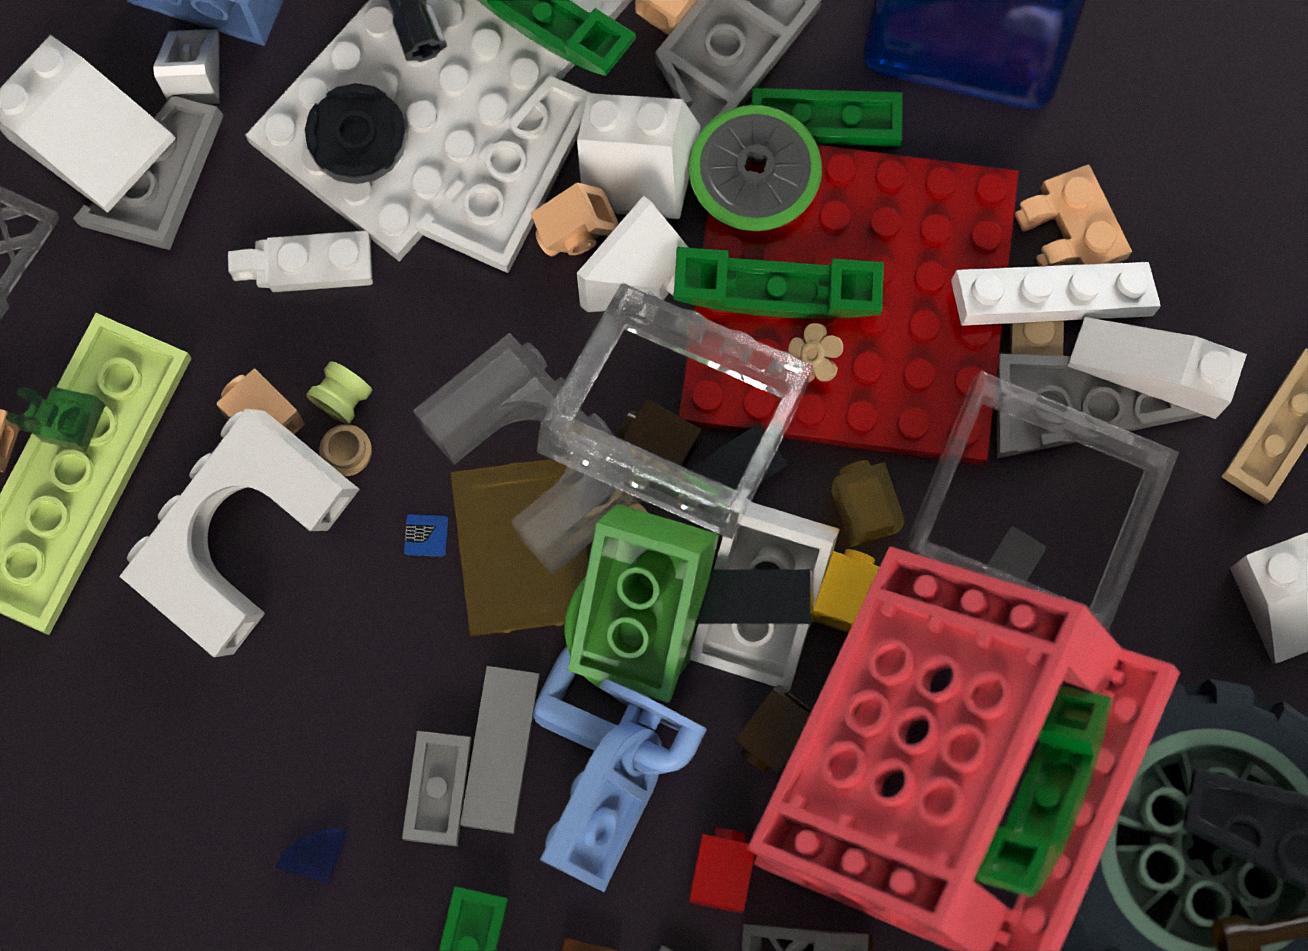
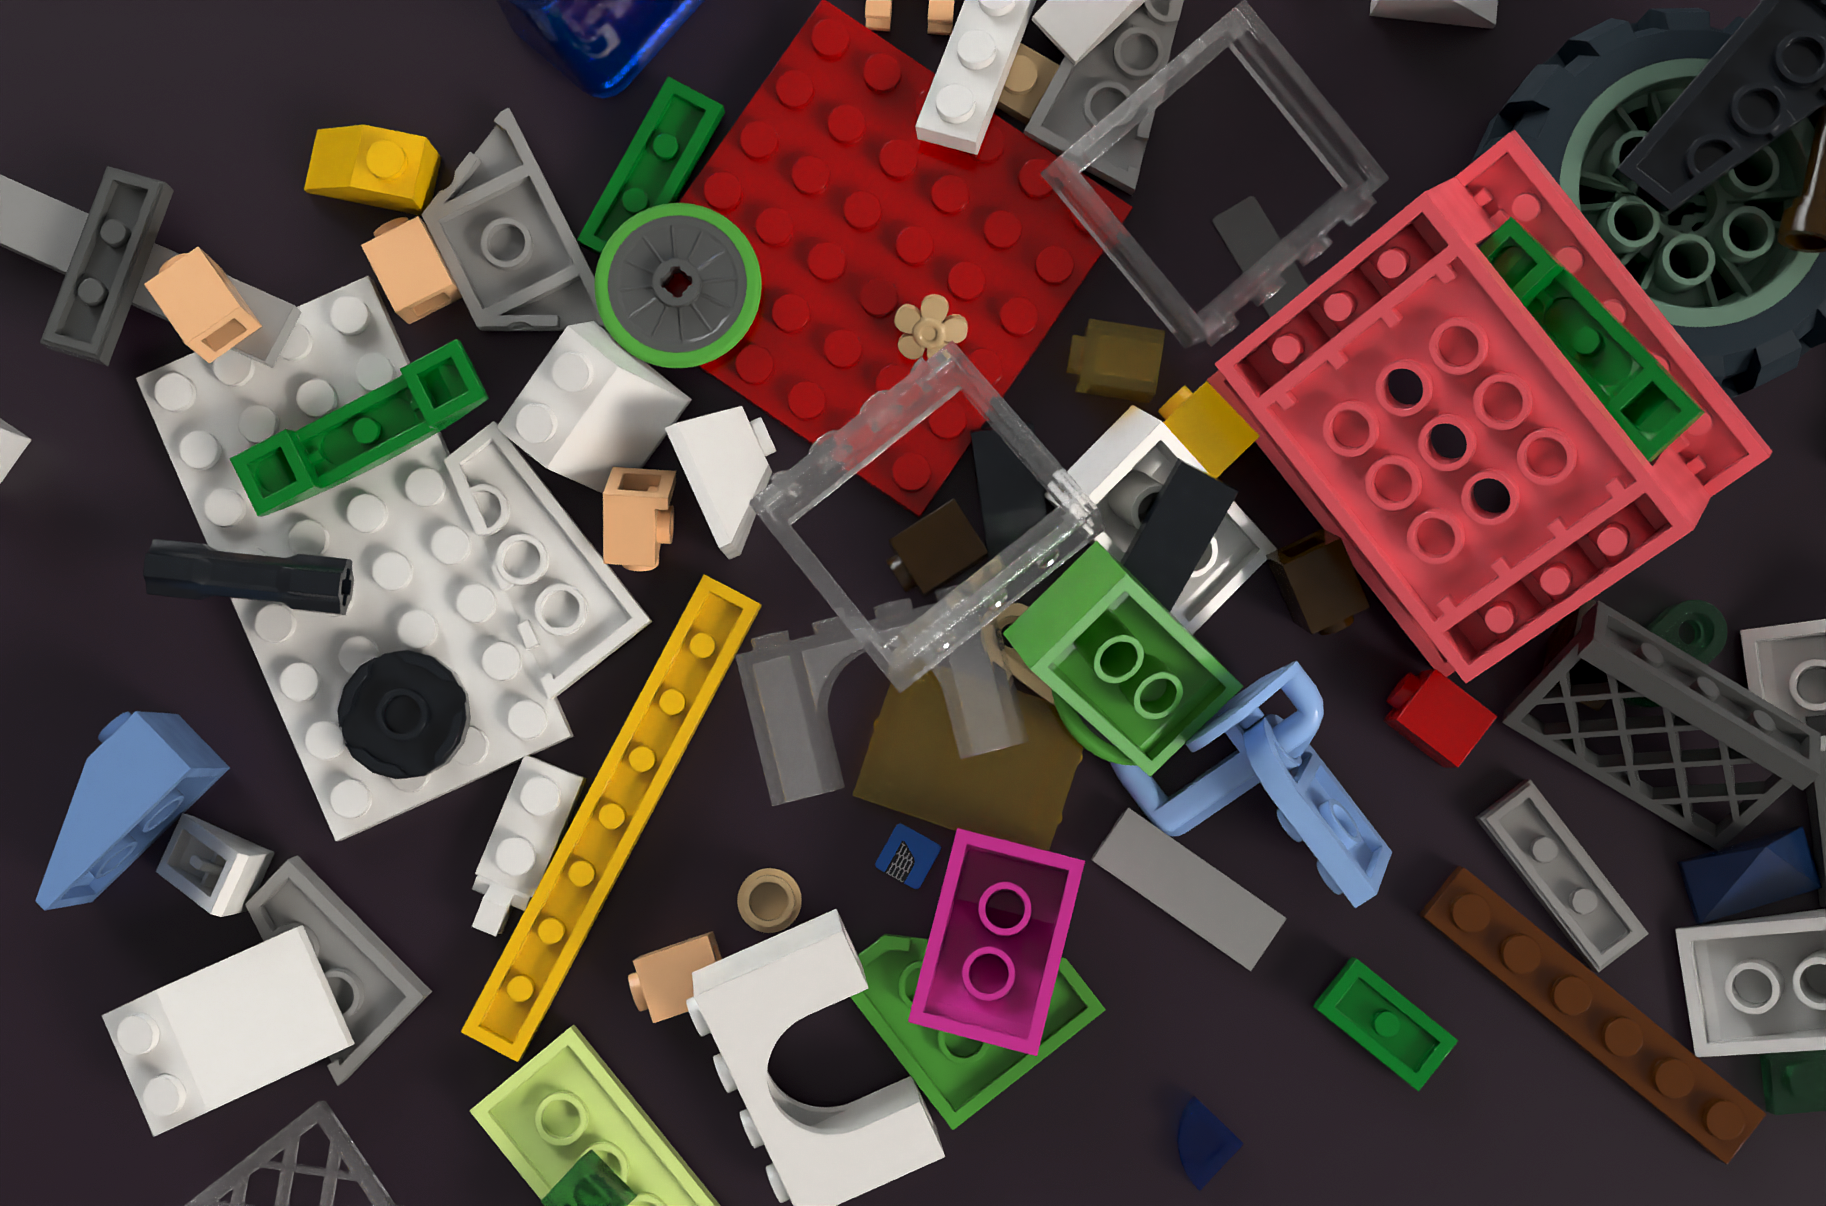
camera: 65 degrees left, 10 degrees up
(328, 630) = (951, 1069): none -> bright green plate
(339, 392) = (702, 877): yellowish green wheel -> none
(352, 311) = (611, 819): none -> yellow plate
(391, 616) = (996, 942): none -> dark pink slope
(437, 788) = (1200, 977): light grey plate -> none
(778, 288) = (832, 329): green slope -> none

